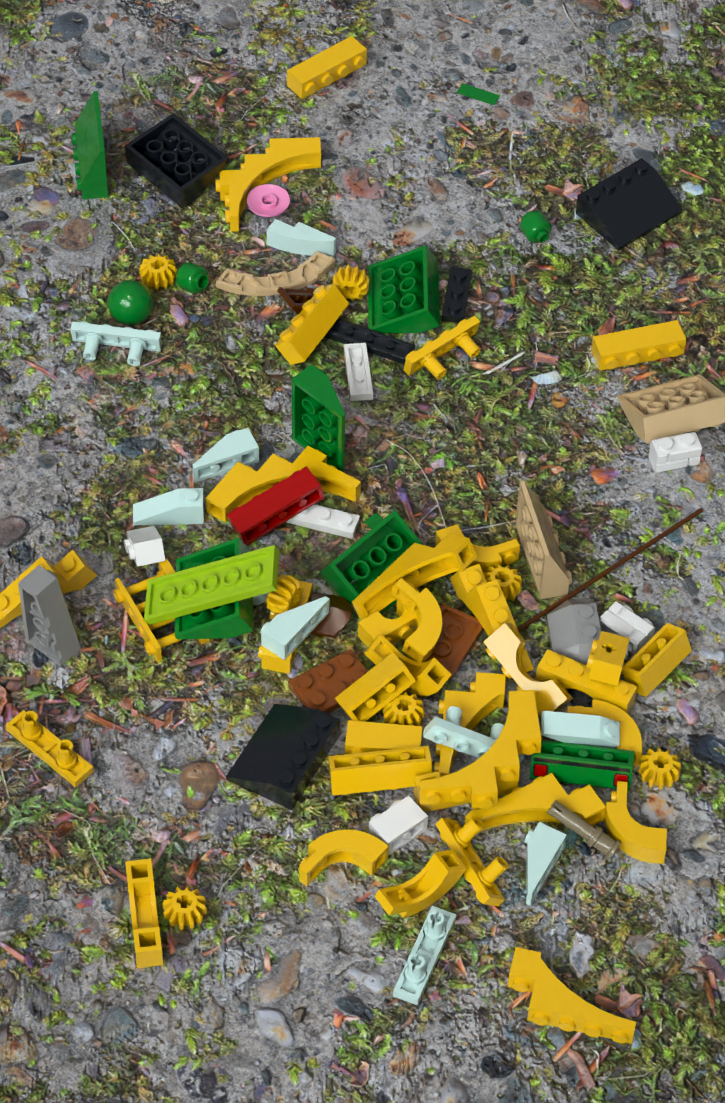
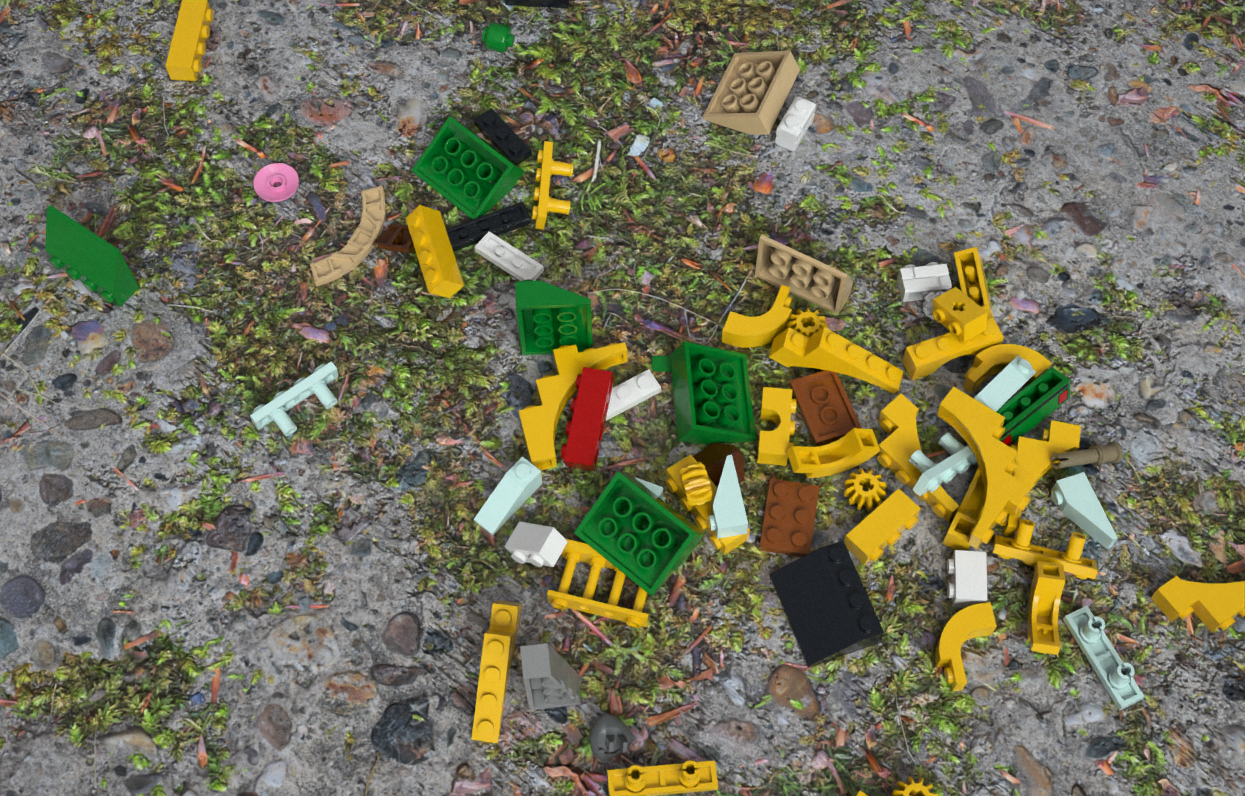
camera: 45 degrees left, 10 degrees up
(47, 693) = (609, 737): none -> dark grey piece
(130, 302) = (273, 358): green piece -> none
(158, 271) = (261, 313): yellow gear -> none
(176, 160) = (166, 210): black slope -> none
(192, 278) = (295, 295): green head -> none
(212, 585) = (644, 528): lime plate -> none
(220, 459) = (500, 404): light aqua slope -> none
(280, 158) = (242, 141): yellow arch -> none
(300, 239) = (339, 192): light aqua slope -> none
(351, 282) = (423, 192): yellow gear -> none
(375, 689) = (836, 492): yellow brick -> none
(378, 770) = (910, 550): yellow brick -> none
(417, 566) = (748, 372): yellow arch -> none
(428, 616) = (808, 403): yellow arch -> none
(507, 647) = (886, 371): yellow arch -> none
(574, 628) = (898, 314): light grey wedge -> none
(608, 570) = (854, 381): reddish brown piece -> none
(636, 840) = (1101, 429): yellow arch -> none
(638, 345) = (674, 66): yellow brick -> none
(659, 768) = (1069, 362): yellow gear -> none

